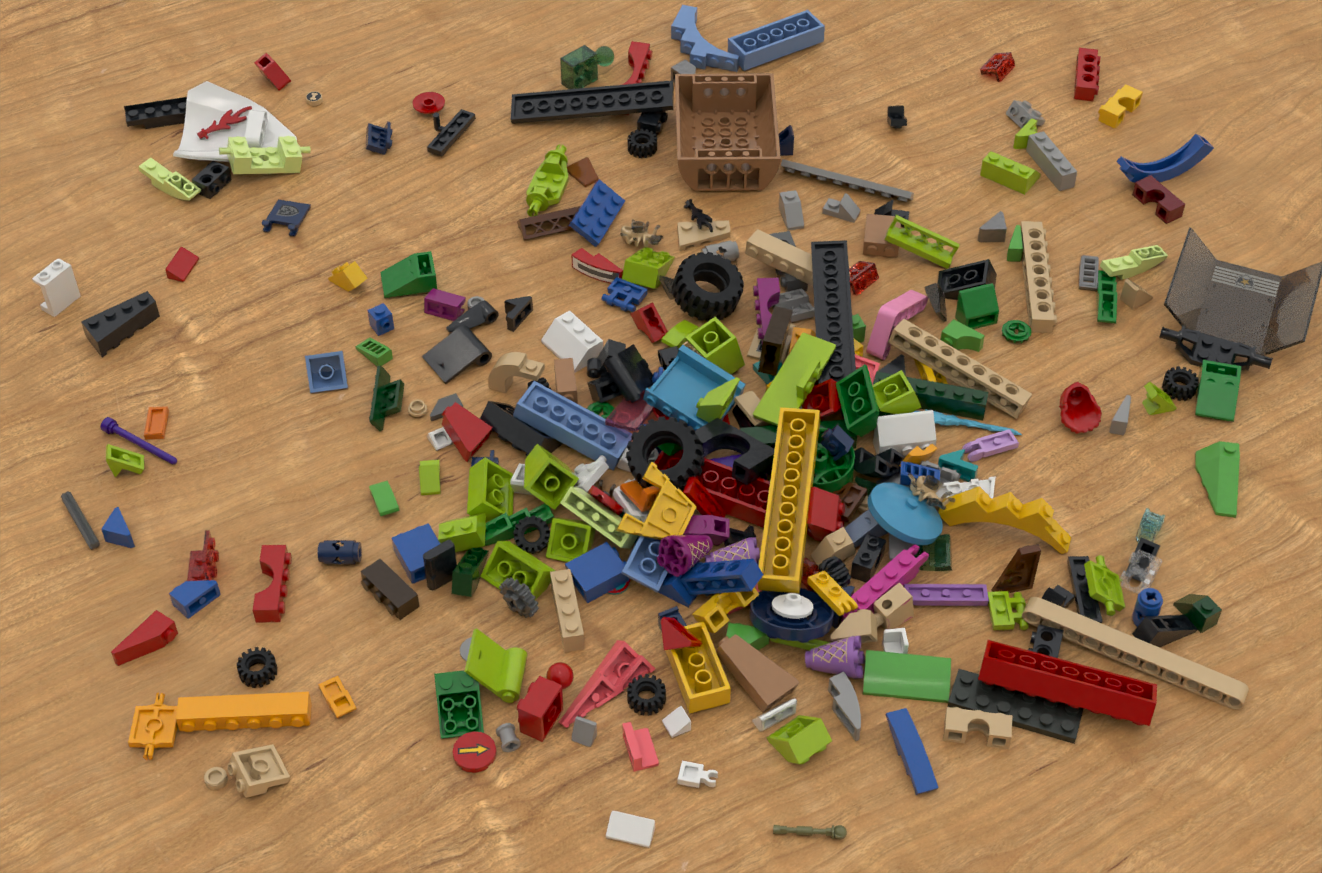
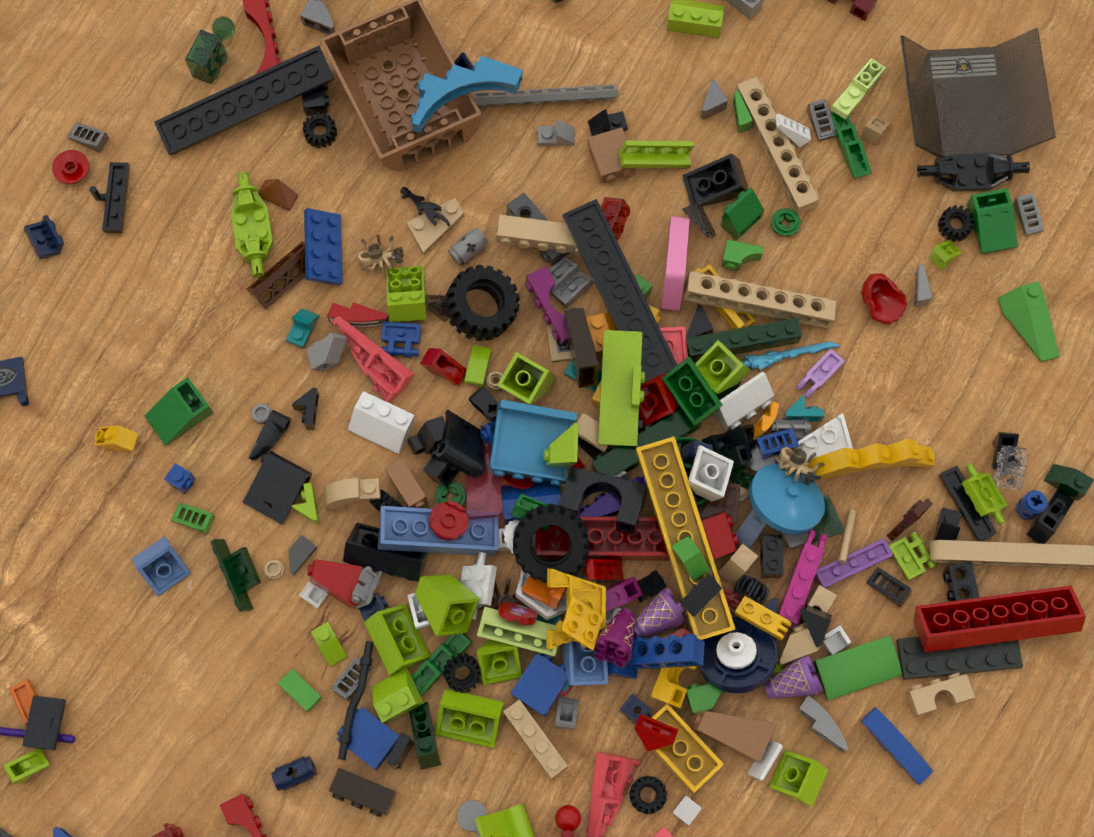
camera: 25 degrees left, 25 degrees up
(159, 436) = (44, 723): none -> black piece
(400, 535) = (345, 738): none -> black bar
(429, 514) = (341, 680): none -> flat silver slope
(444, 304) = (231, 430): magenta hinge -> none
(456, 92) = (99, 143): none -> flat silver slope
(474, 376) = (308, 509): none -> lime slope
(481, 446) = (364, 594): none -> light grey hinge
(518, 597) = (488, 751): dark grey gear -> none
(546, 261) = (303, 325): none -> teal slope
(556, 277) = (326, 352): none -> light grey slope
(586, 416) = (448, 520): none -> red tile
(595, 305) = (385, 371): none -> coral wedge
(605, 606) = (566, 714): none -> light grey slope
(657, 519) = (581, 623): none -> yellow hinge
(774, 129) = (486, 75): none -> dark azure arch
(779, 537) = (700, 595): none -> black slope
(785, 508) = (691, 558): none -> bright green slope
(791, 210) = (510, 159): light grey slope -> none
(837, 454) = (710, 474): none -> white slope
(880, 612) = (816, 622): none -> black slope
(950, 571) = (847, 536): none -> tan bar
(979, 638) = (885, 592): none -> black slope
(1056, 267) = (795, 131): none -> white slope
(1150, 525) = (994, 402): clear light blue piece -> none
(1259, 390) = (1032, 205): none -> light grey slope

